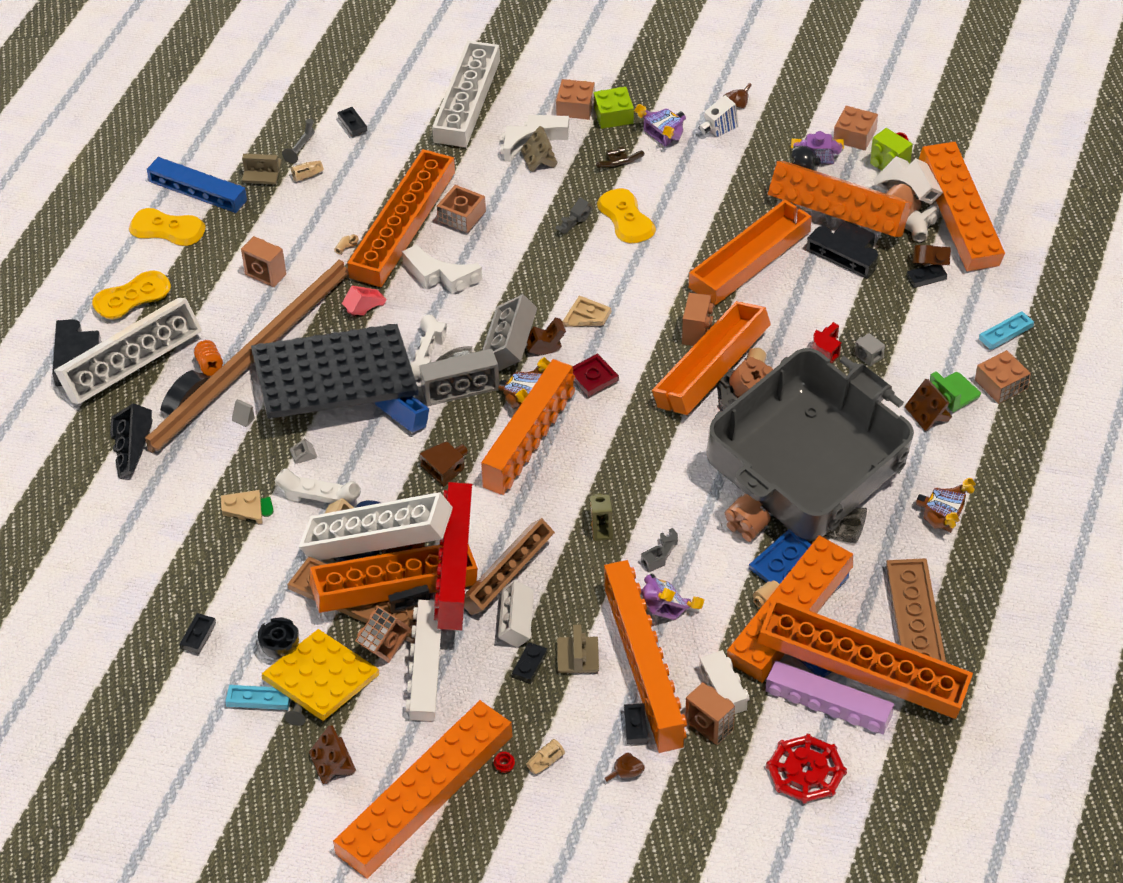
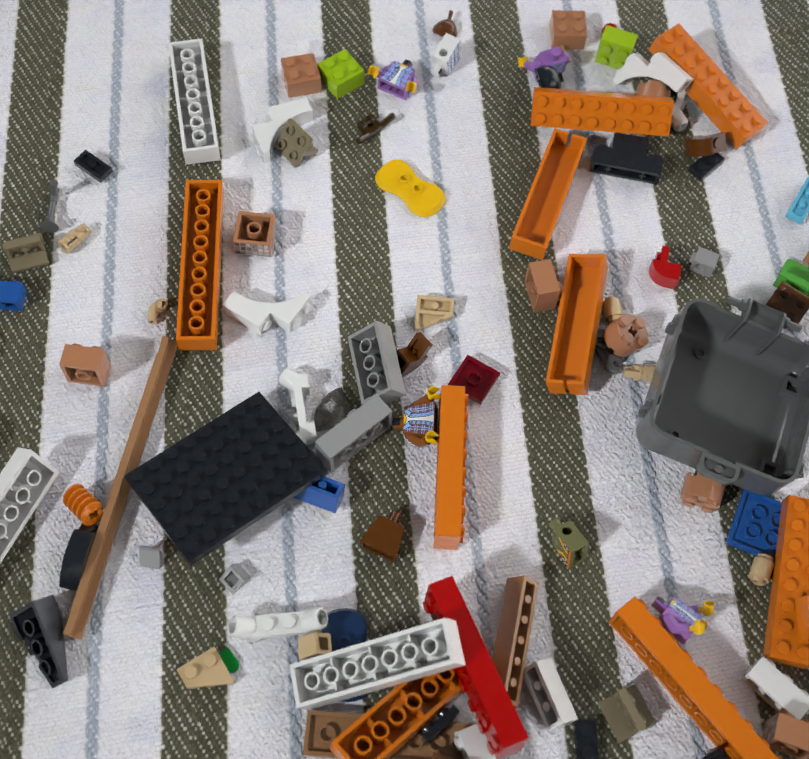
camera: 30 degrees left, 15 degrees up
(362, 299) = (208, 374): coral arch -> none
(577, 214) = (367, 202): dark grey piece -> none
(649, 557) = (642, 546): dark grey piece -> none

